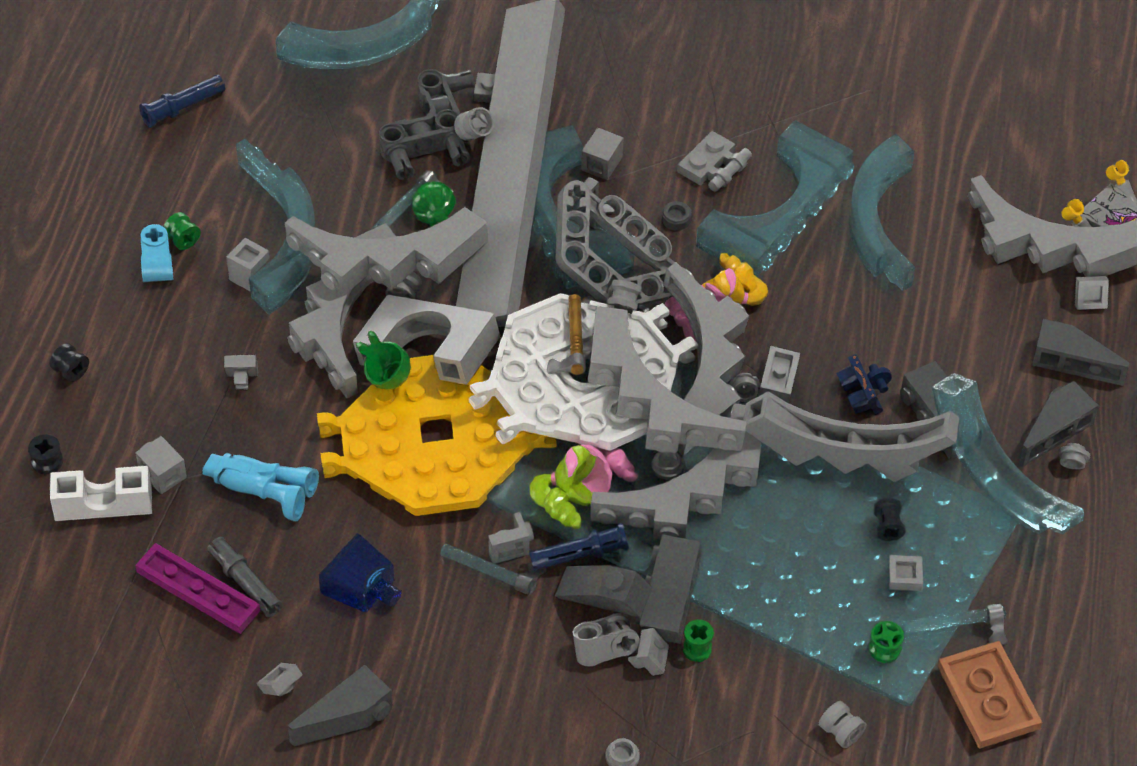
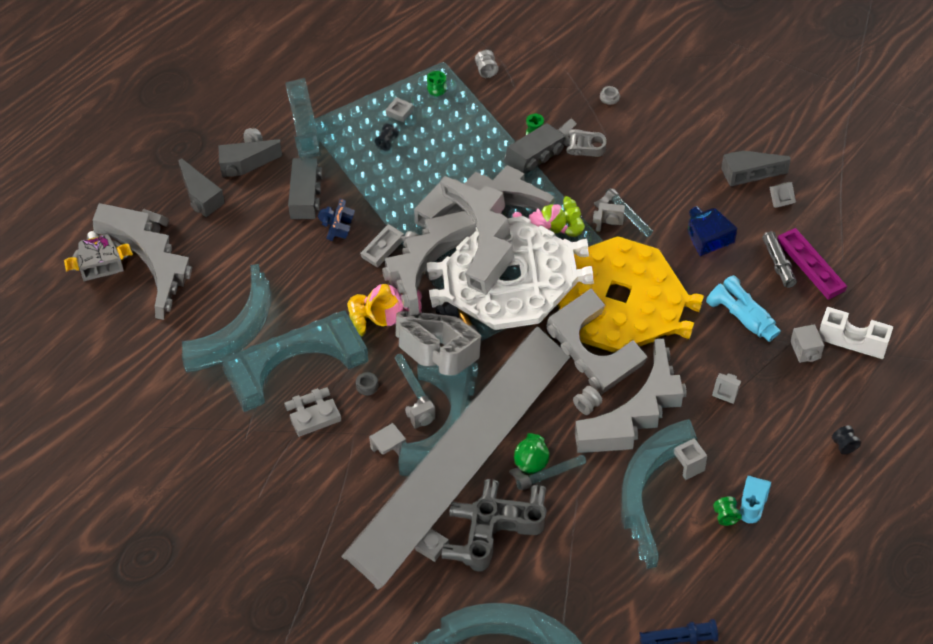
camera: 150 degrees left, 0 degrees up
(51, 460) = (885, 388): black wheel -> none
(385, 362) = (635, 323): green piece -> none
(389, 260) = (563, 389): light grey arch -> none
(474, 124) = (471, 487): light grey wheel -> none
(576, 361) = (515, 265): pearl gold piece -> none
(595, 544) = (562, 188): dark blue pin -> none
(605, 588) = (574, 155): dark grey slope -> none
(624, 295) = (452, 308): light grey wheel -> none
(847, 445) = (359, 158): light grey arch -> none
(989, 694) = (399, 51): nougat plate -> none
(992, 614) = (369, 79): clear light blue piece -> none

